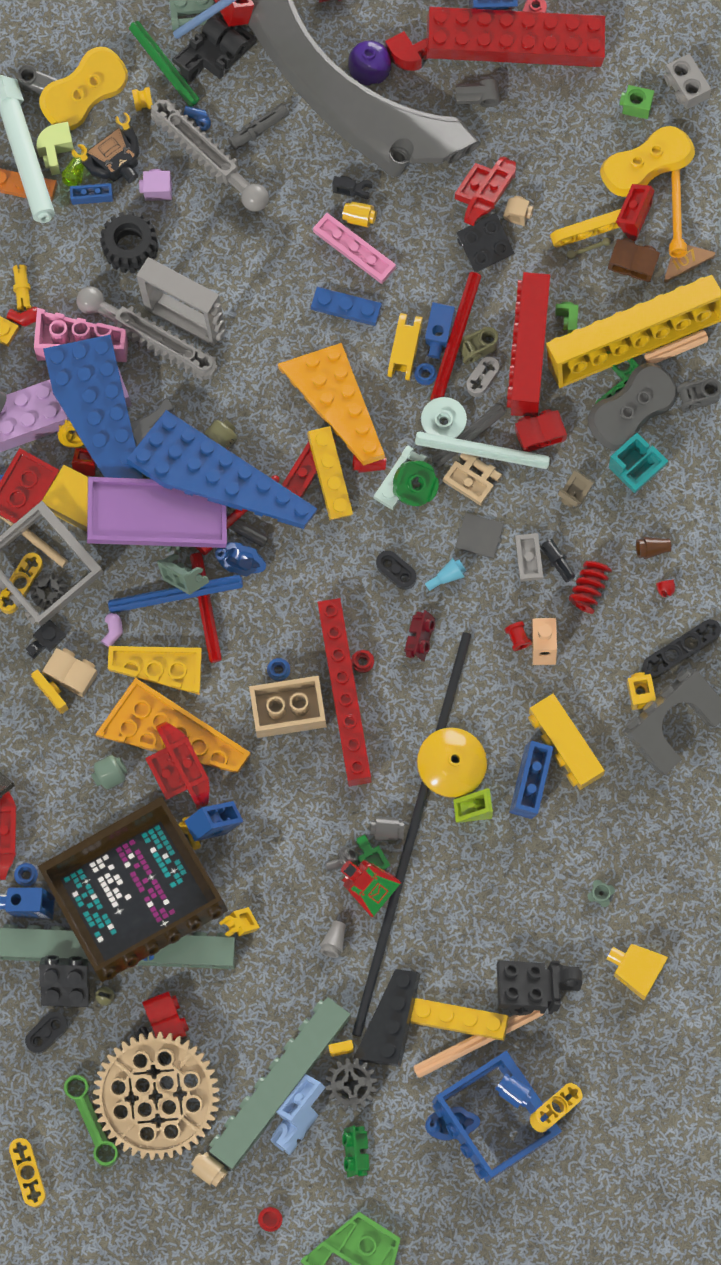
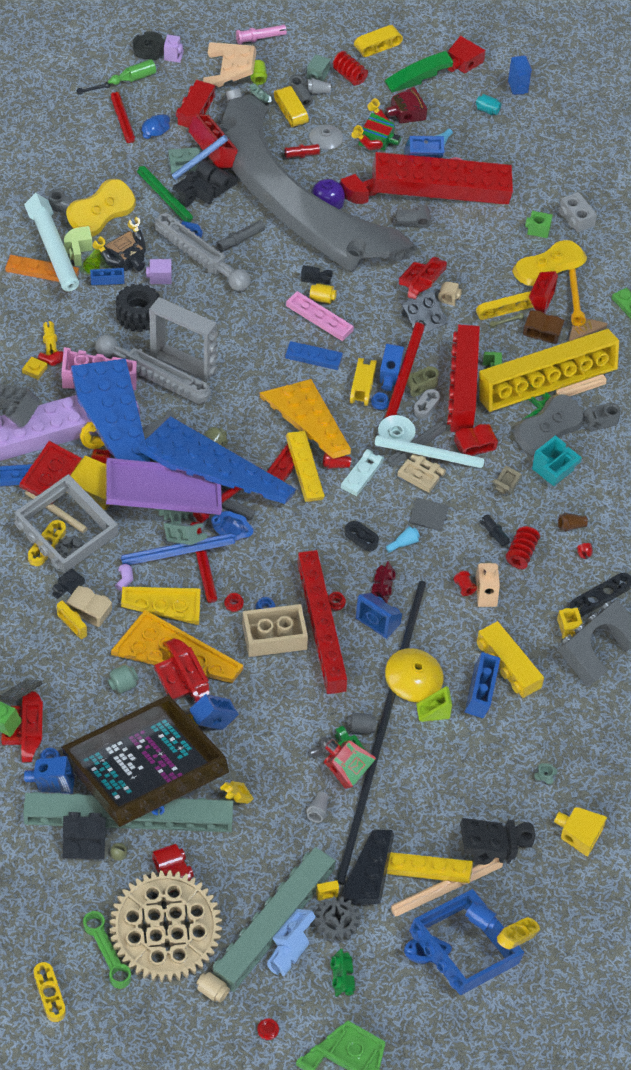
camera: 10 degrees left, 20 degrees down
(46, 1032) = (65, 879): black plate -> none
(142, 99) = (148, 215): yellow wheel -> none
(241, 657) = (233, 597): none -> red plate
(412, 682) = (377, 614): none -> blue slope
(426, 477) = (369, 480): green plate -> none
(529, 557) = (471, 528): light grey plate -> none

